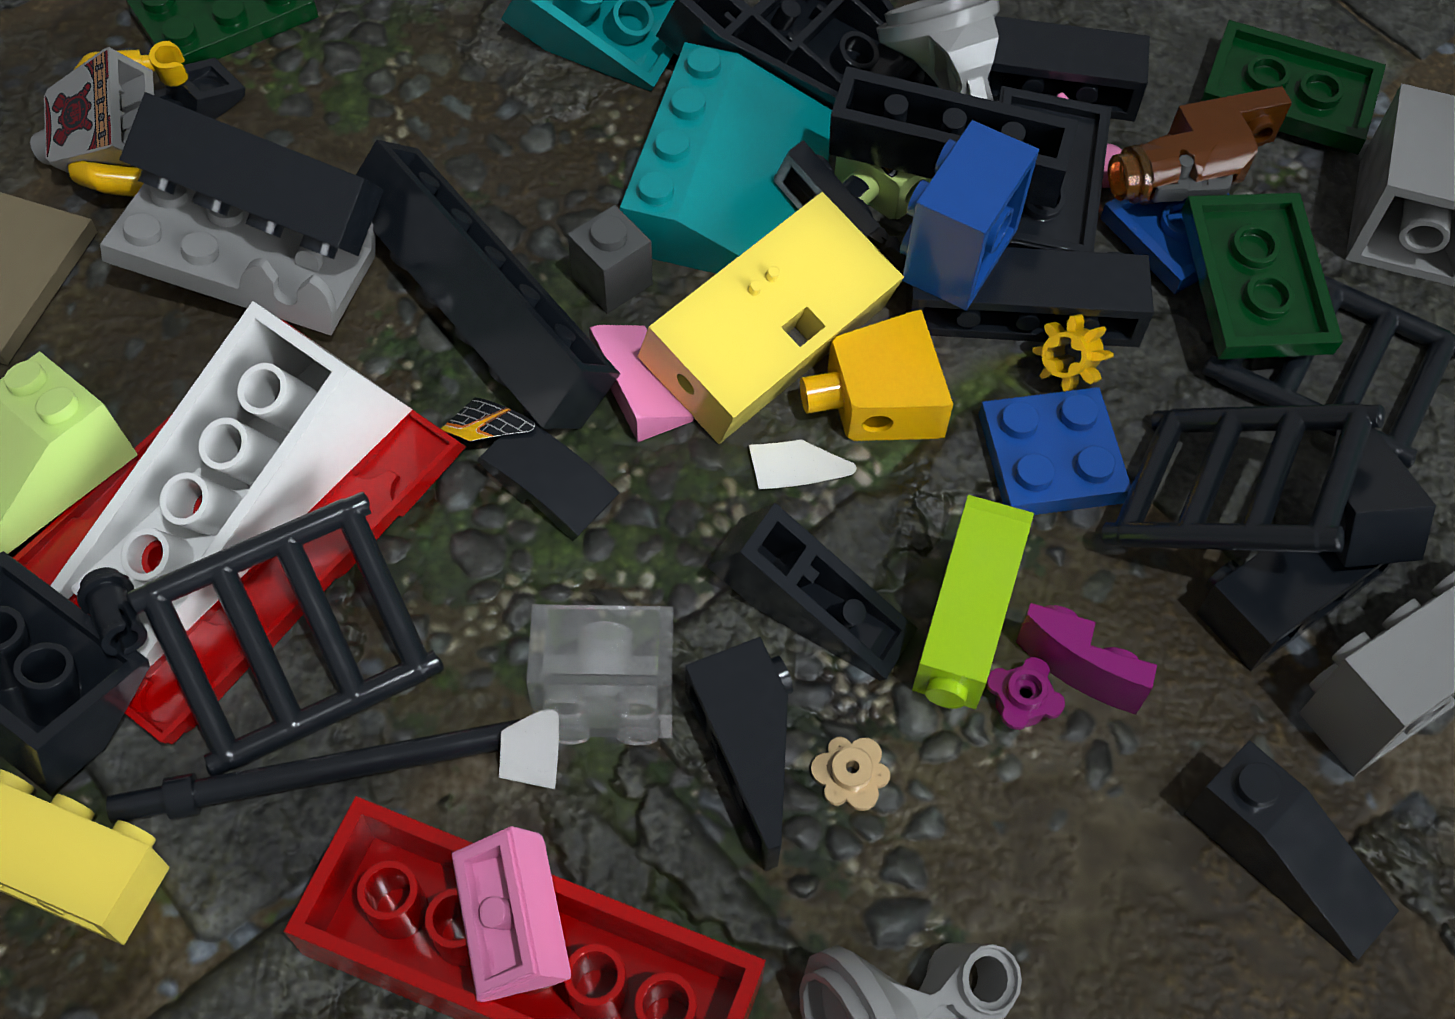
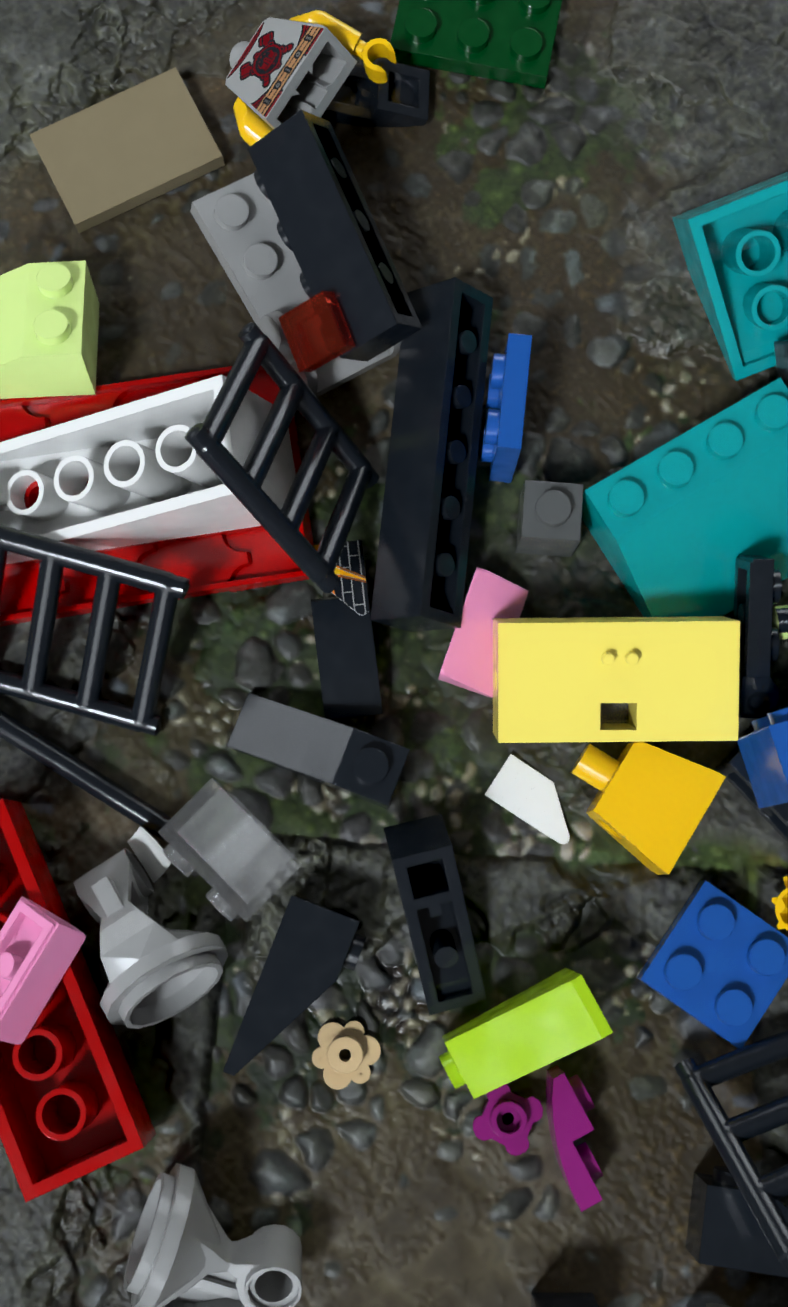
camera: 45 degrees right, 20 degrees up
(300, 240) = (316, 331): none -> clear red tile
(341, 345) = (247, 480): none -> black bar
(506, 201) = (508, 399): none -> blue plate
(601, 553) = (319, 749): none -> black slope
(619, 805) = (148, 966): none -> light grey piece

